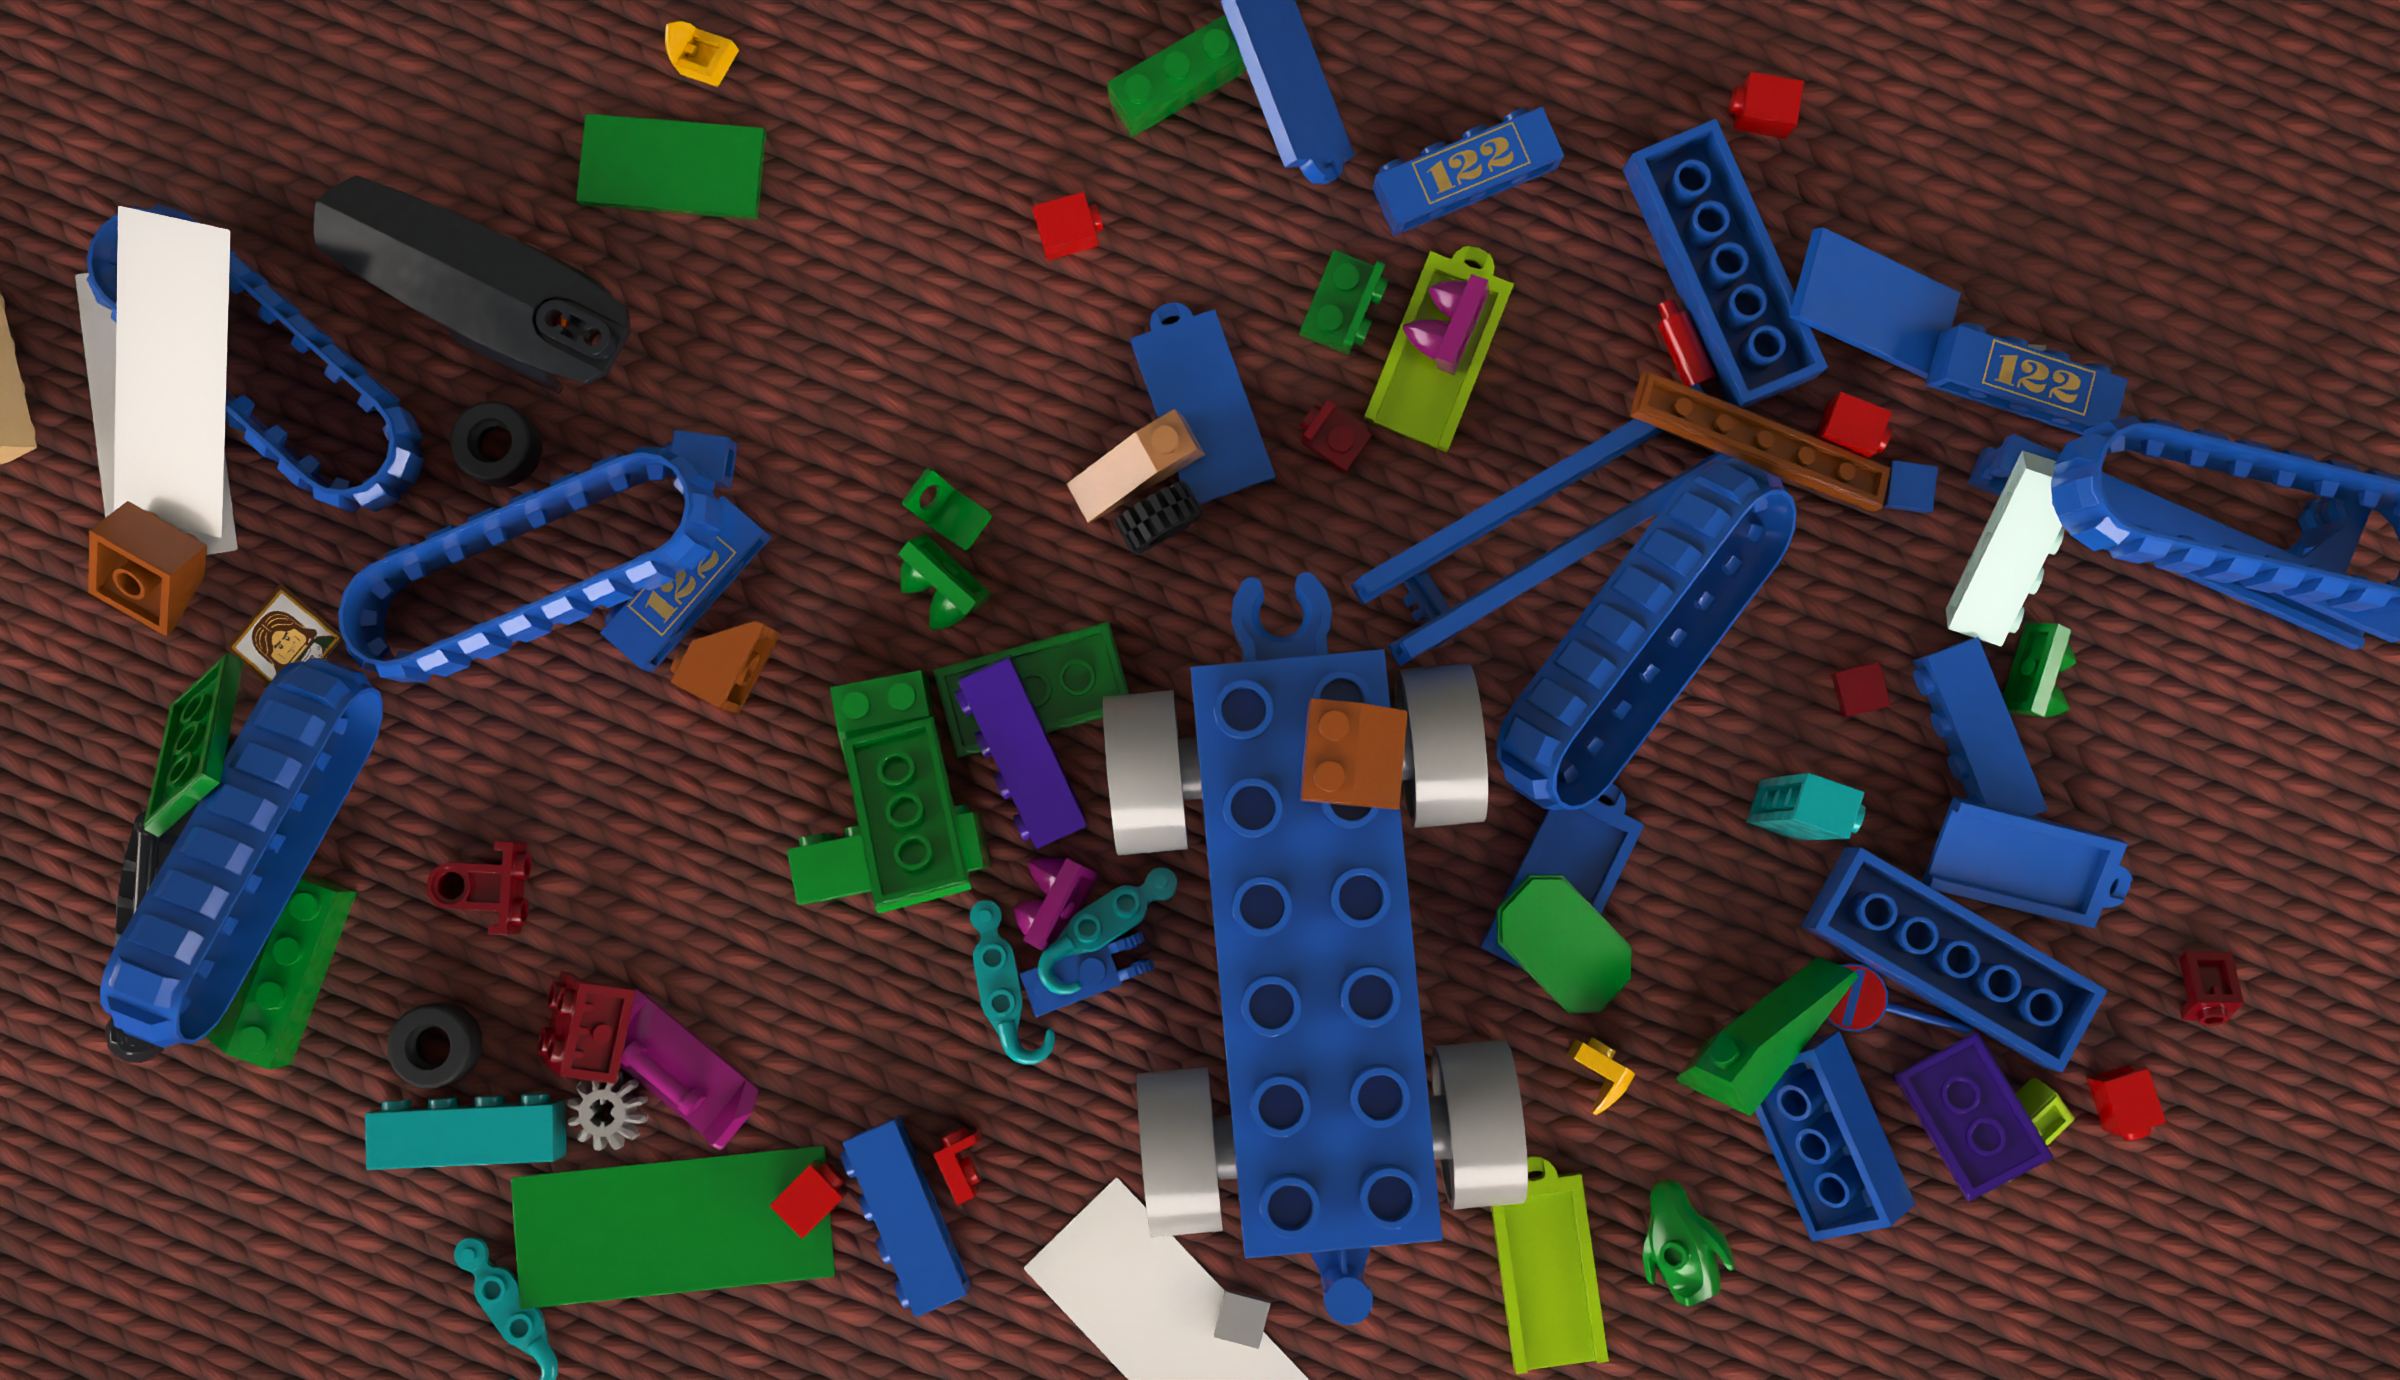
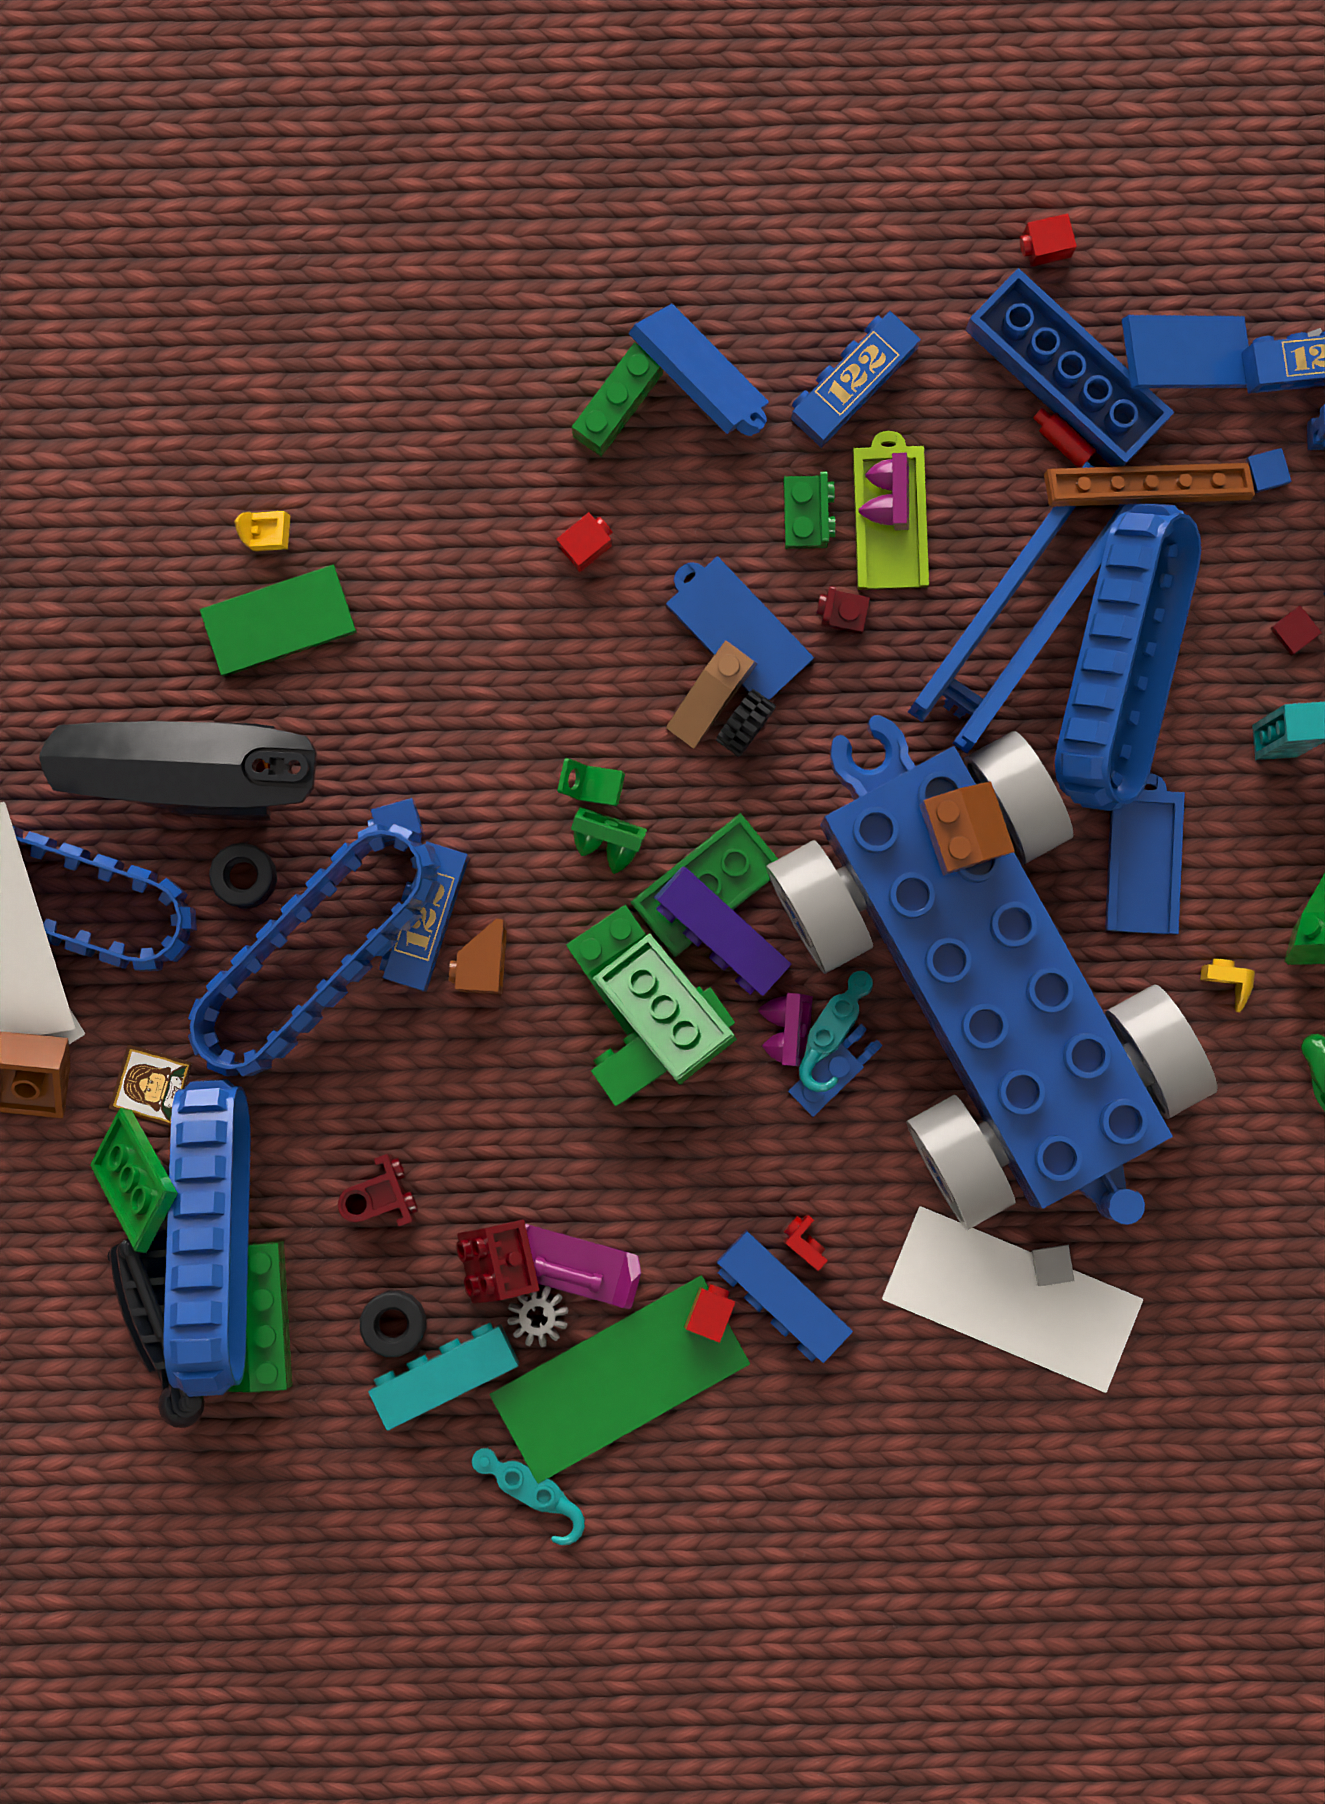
camera: 25 degrees left, 0 degrees up
(1000, 984) = (777, 1104): teal piece -> none
(1549, 1273) = (1255, 1139): lime piece -> none
(1563, 943) = (1164, 900): green shield -> none
(1855, 425) = (1210, 444): red brick -> none

